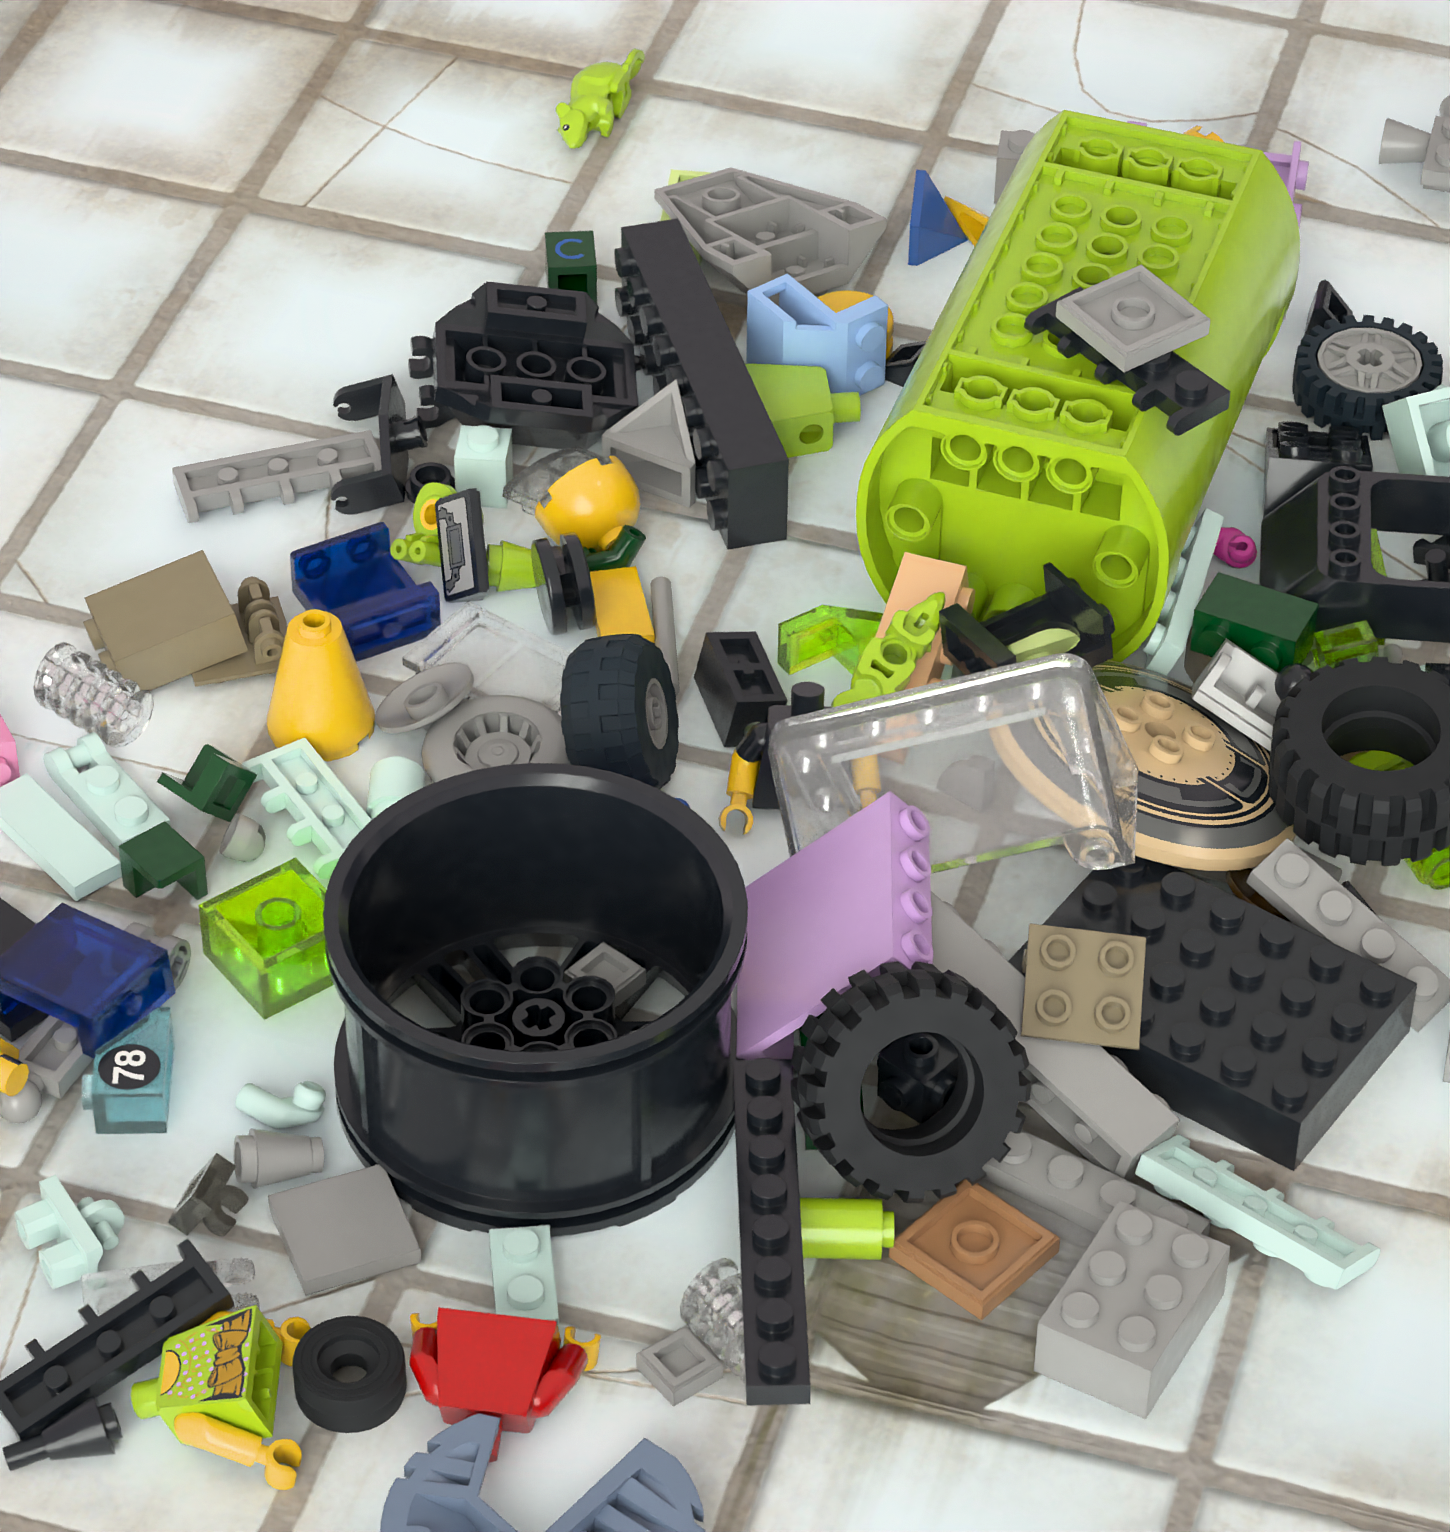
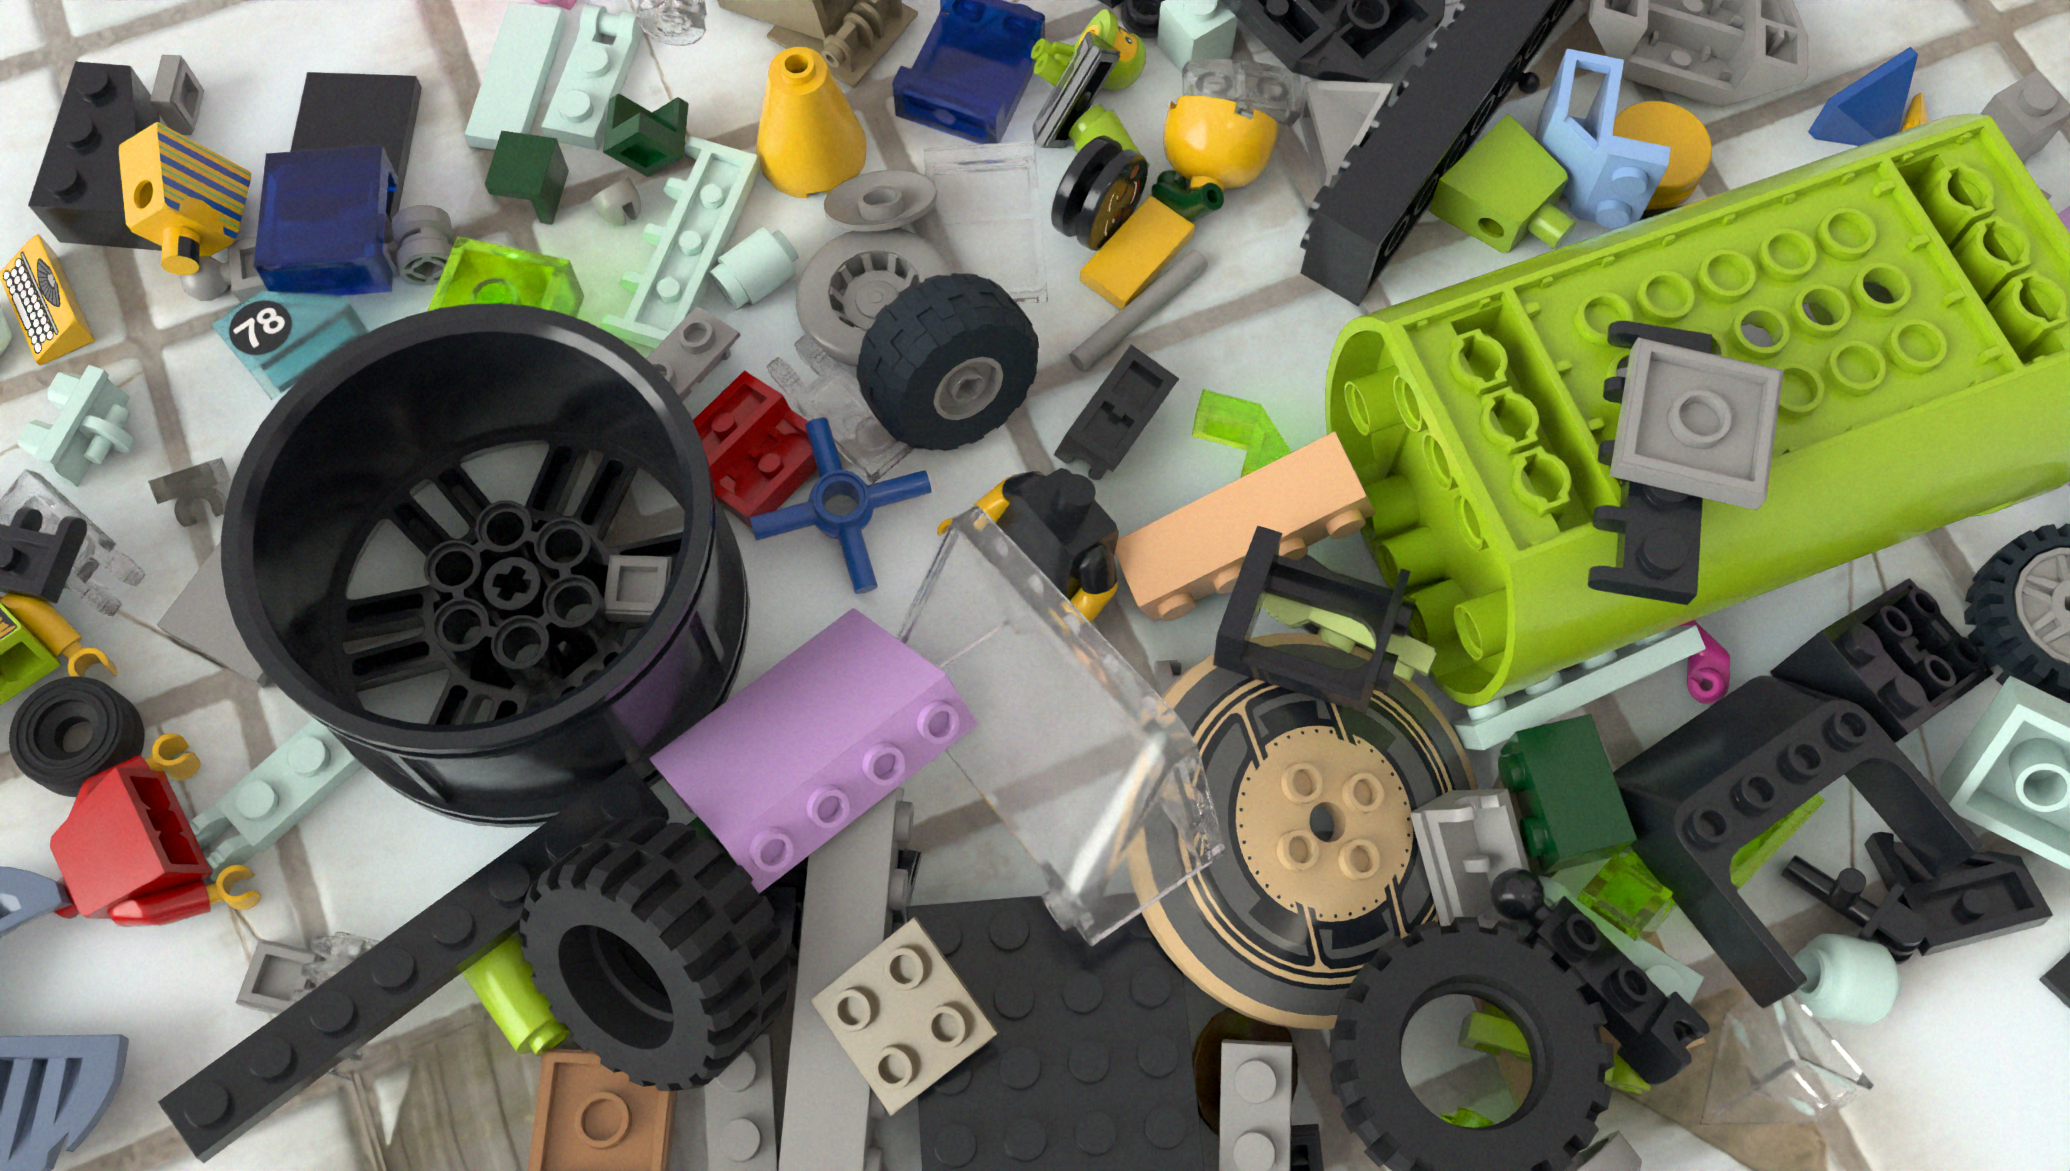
camera: 50 degrees right, 25 degrees up
(891, 660) = (1177, 528): lime animal -> none

